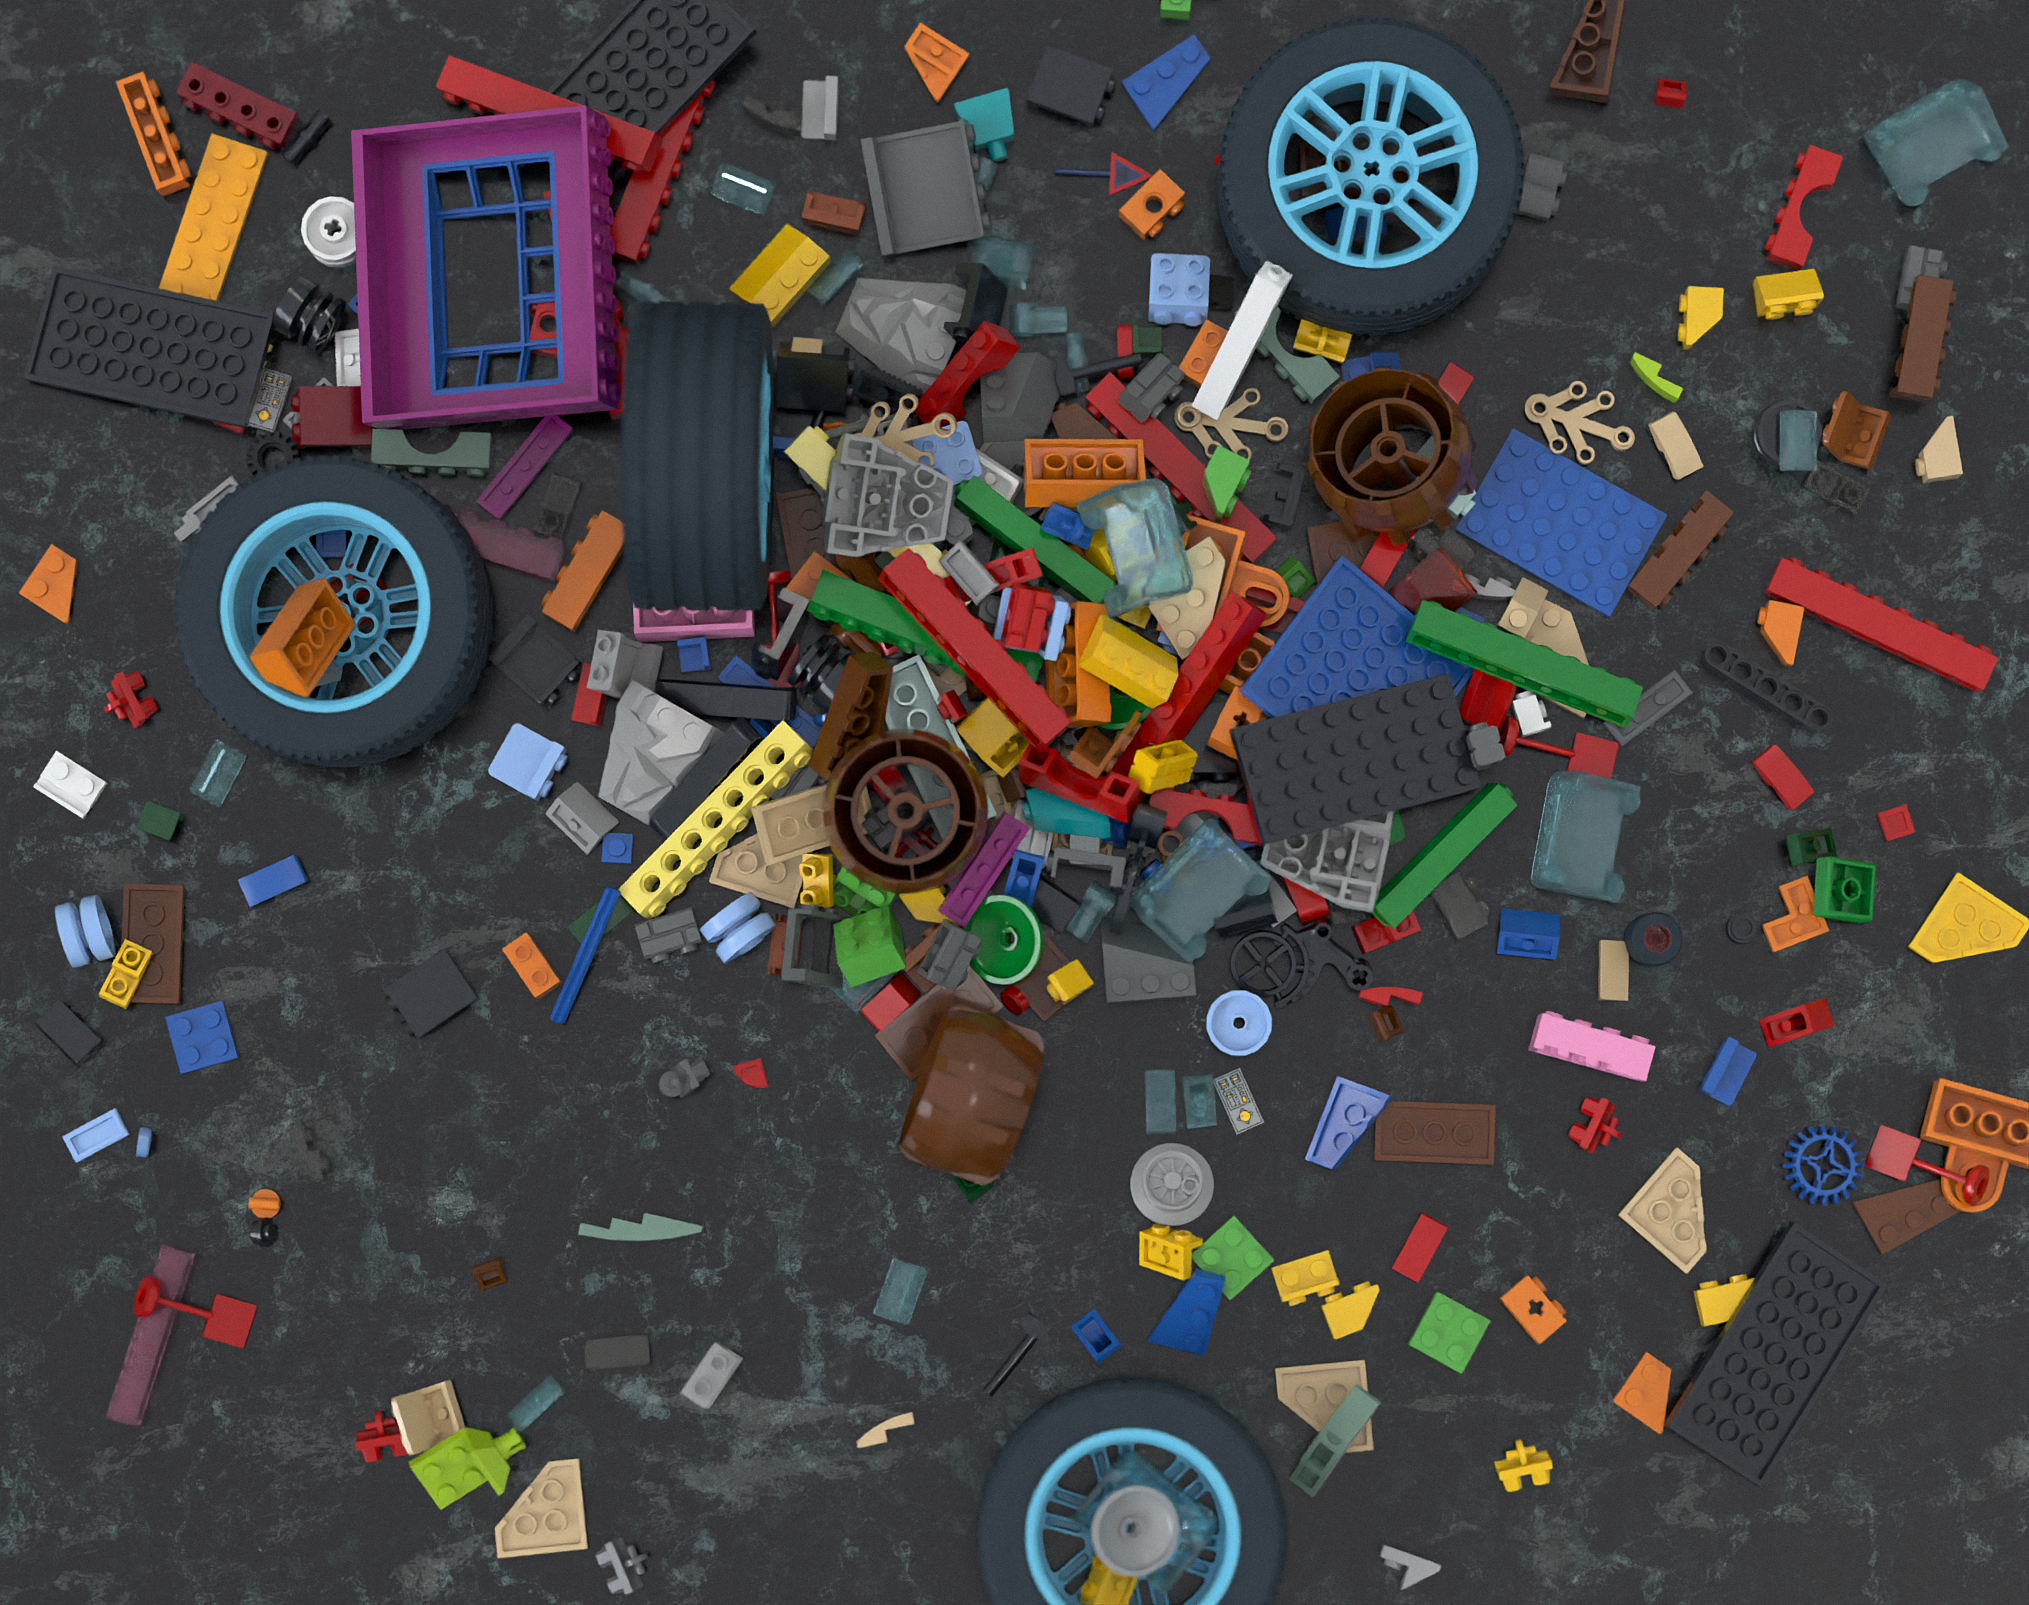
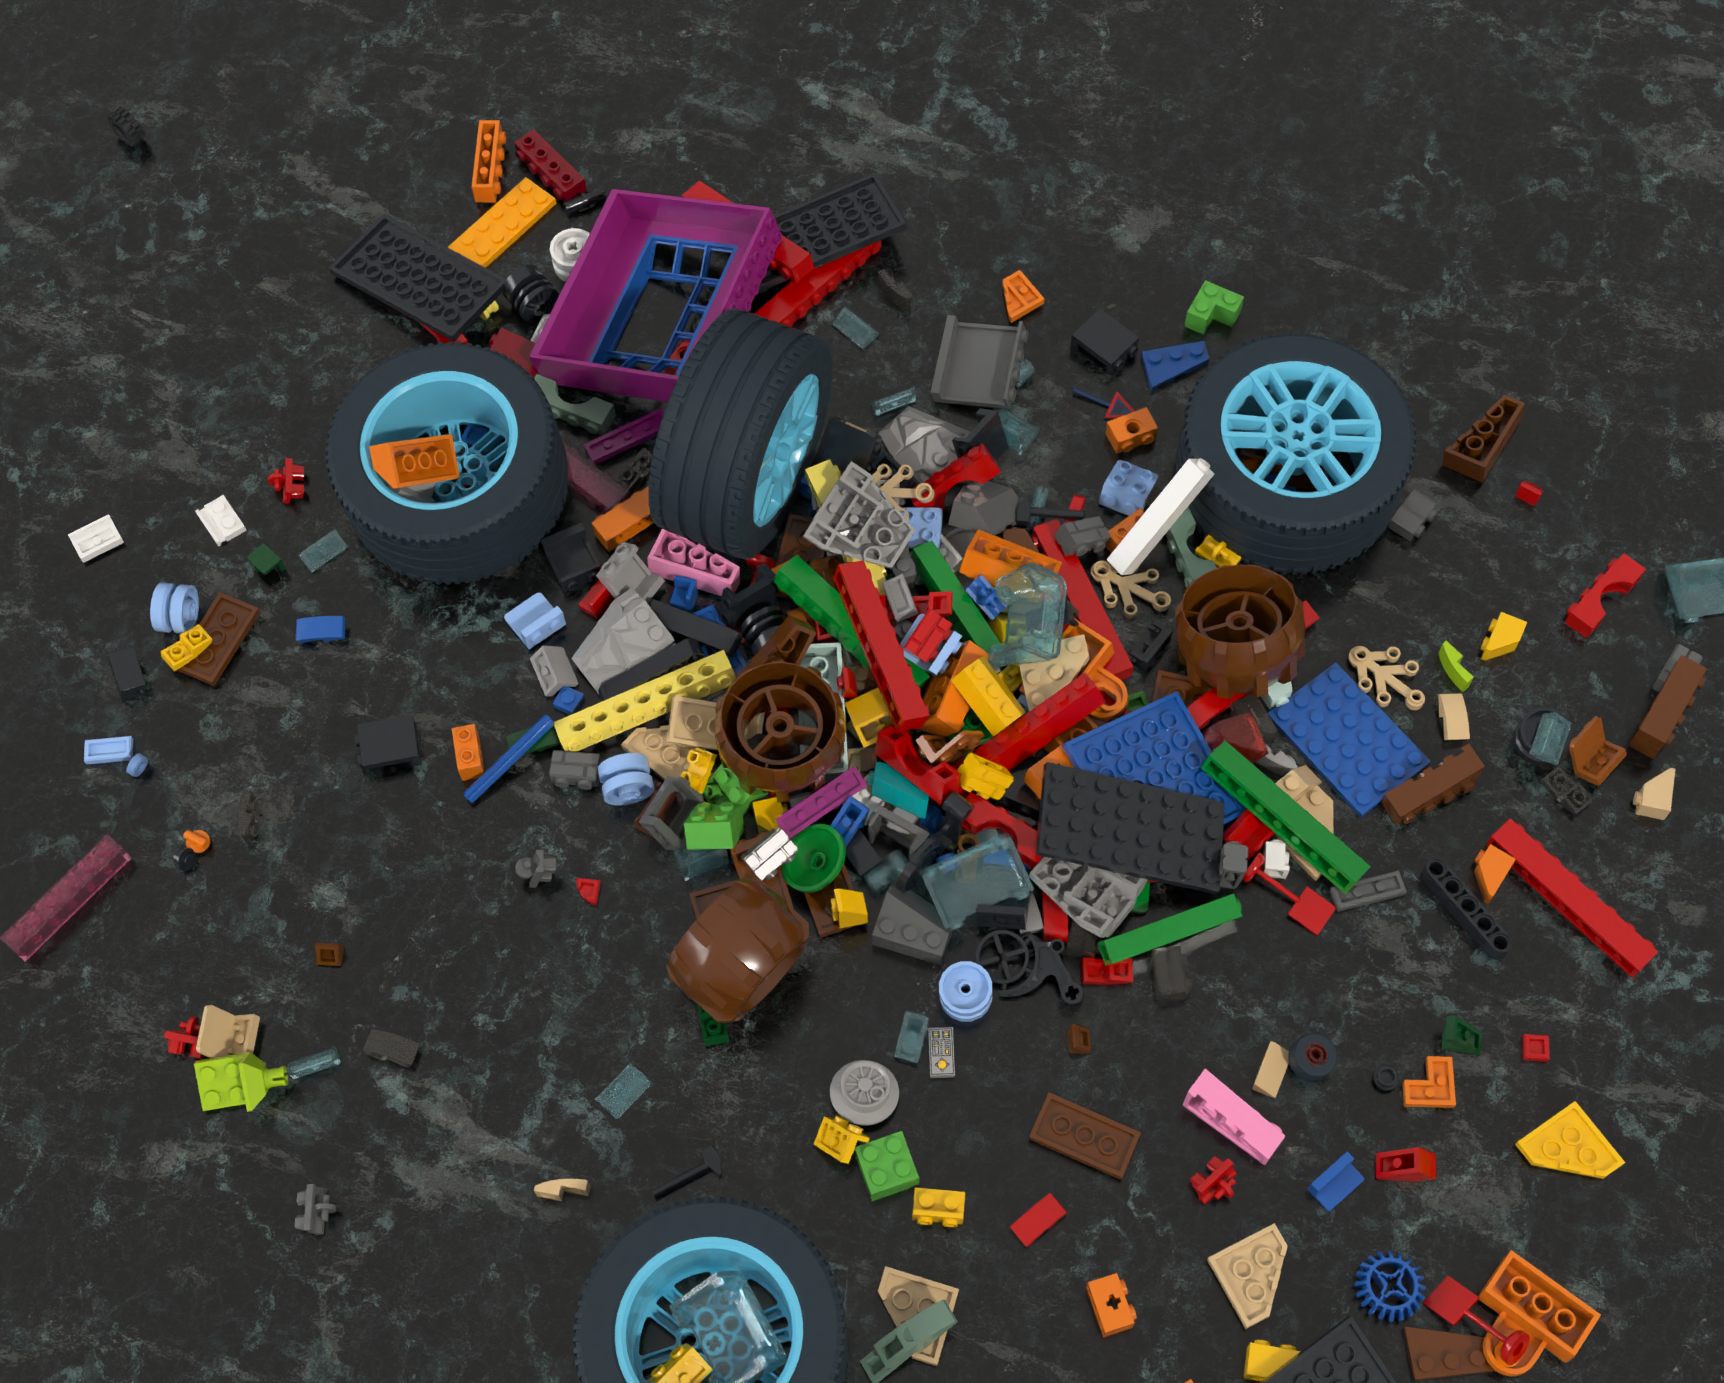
camera: 20 degrees right, 20 degrees down
(53, 583) = (279, 395): orange wing -> none
(202, 1037) = (217, 713): blue plate -> none
(226, 1321) = (125, 910): red piece -> none
(270, 400) = (482, 334): tile -> none
(546, 1515) = (278, 1147): tan plate -> none
(652, 1228) = (459, 968): sand green slope -> none
(712, 1375) = (450, 1088): light grey panel -> none
(781, 273) = (860, 386): yellow slope -> none
(820, 109) = (930, 299): light grey panel -> none
(833, 213) = (909, 362): copper hinge -> none
(890, 1002) = (711, 873): slope -> none
(991, 121) = (1041, 343): teal torso -> none
(1014, 1000) = (805, 909): red tile -> none
(1028, 319) = (1015, 470): clear light blue piece -> none
(1096, 1336) = (757, 1185): blue slope -> none
(1147, 341) = (1092, 510): dark green panel -> none
(1151, 1537) = (733, 1338): light grey dish -> none
(1160, 1101) = (882, 1029): clear light blue slope -> none
(1192, 1315) = (836, 1196): blue wing -> none
(1222, 479) = (1111, 606): bright green slope -> none
(1344, 1121) = (1017, 1097): wing -> none
(1350, 1312) = (963, 1246): yellow slope -> none
(1382, 995) = (1083, 1016): red slope -> none
(1448, 1332) = (1035, 1294): bright green brick -> none
(1528, 934) = (1215, 1017): blue panel -> none
(1582, 835) = (1286, 958): clear light blue windscreen -> none
(1783, 776) = (1458, 977): red slope -> none
(1786, 293) = (1573, 645): yellow slope -> none
(1856, 878) = (1479, 1076): green brick -> none

